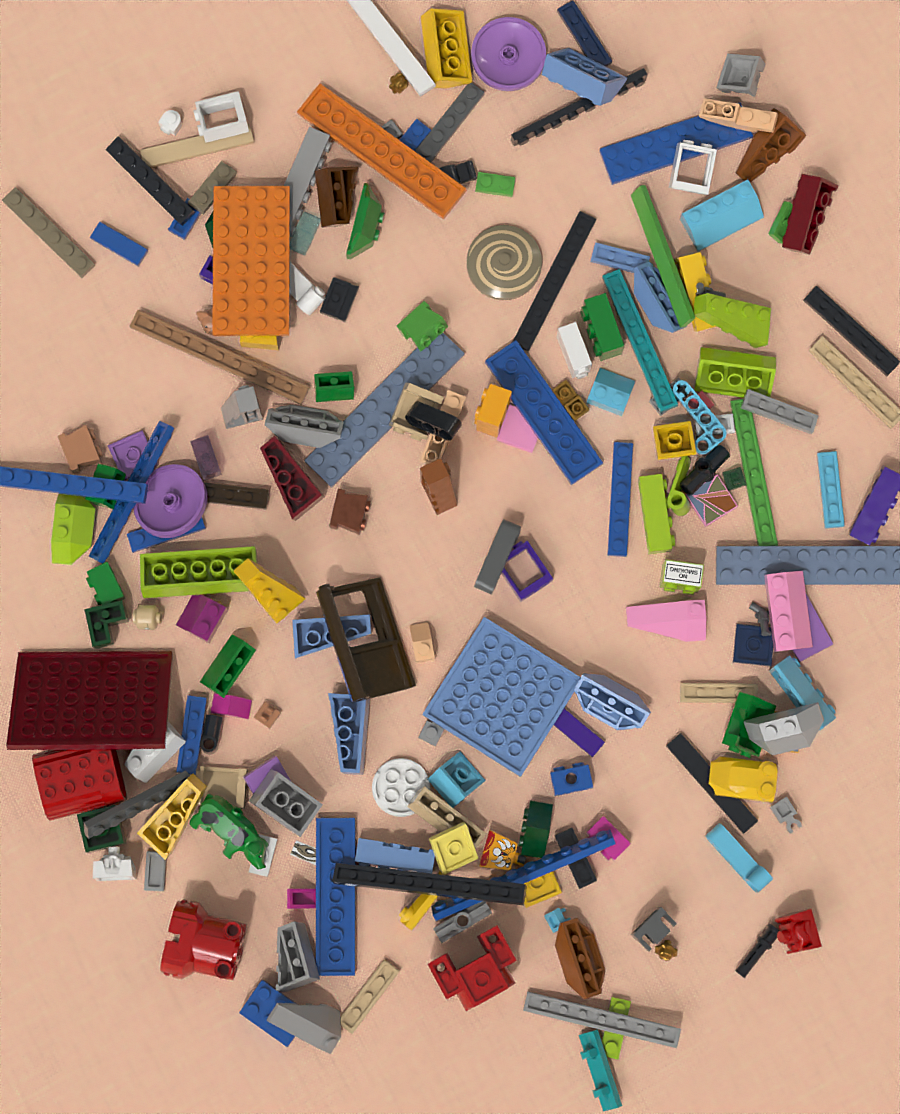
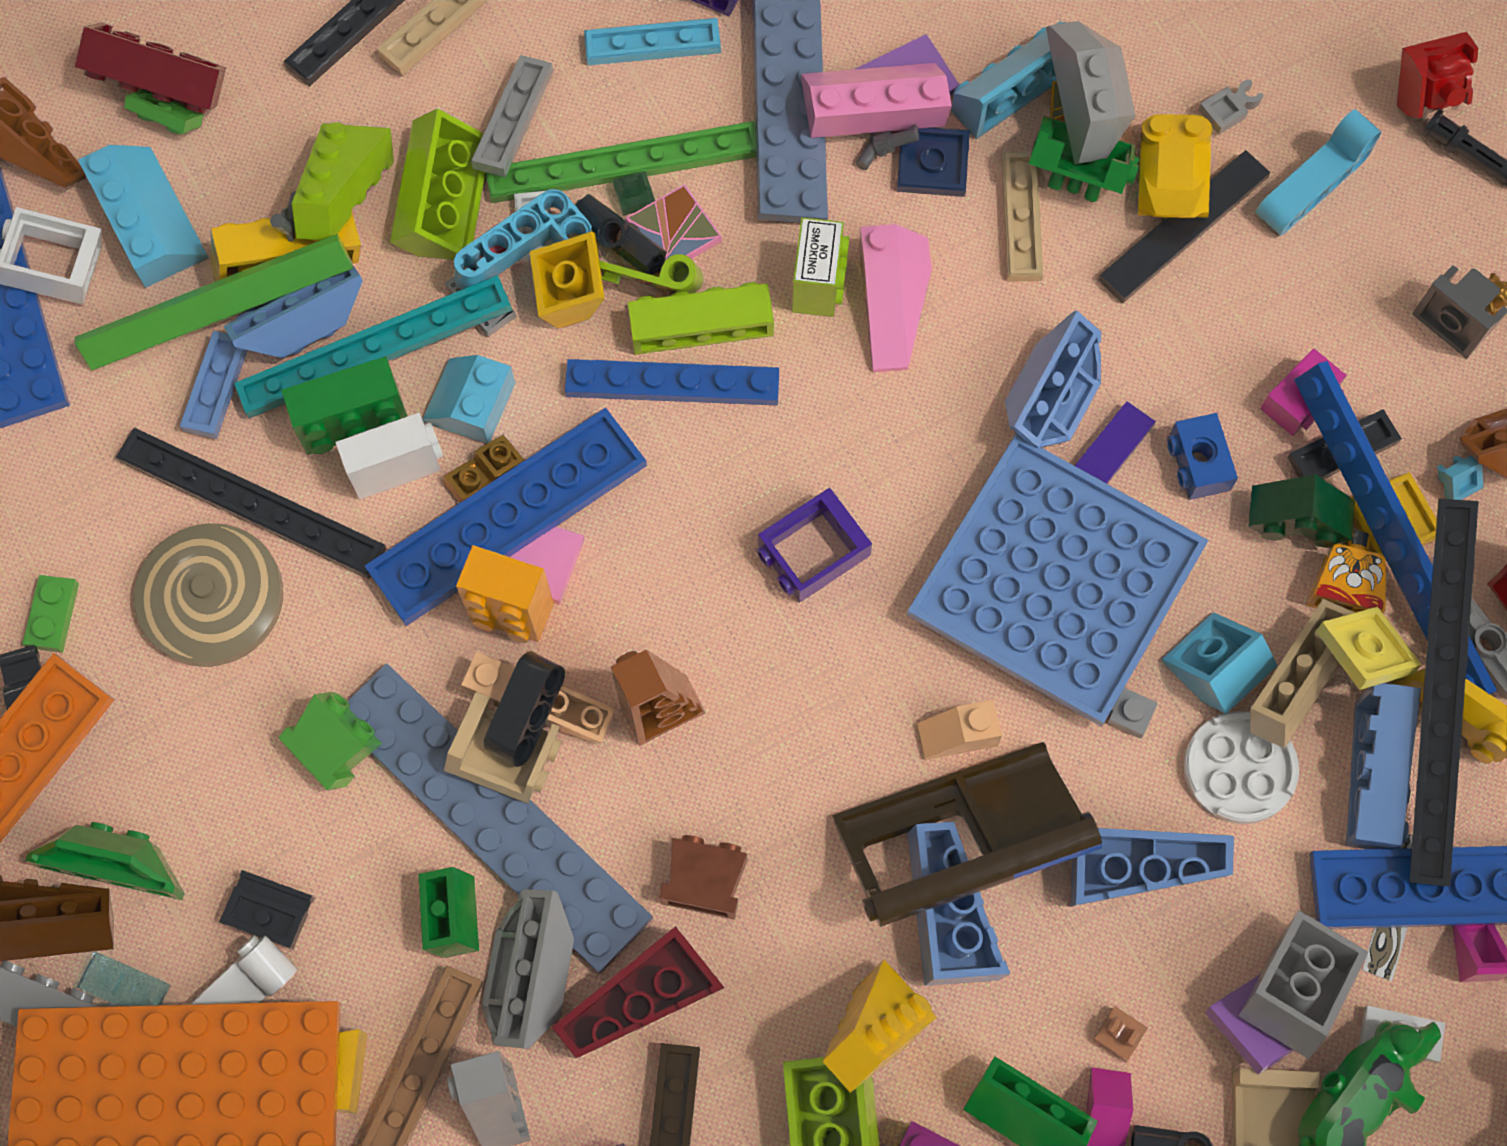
camera: 90 degrees left, 10 degrees down
(497, 556) = (791, 582): dark grey beam -> none

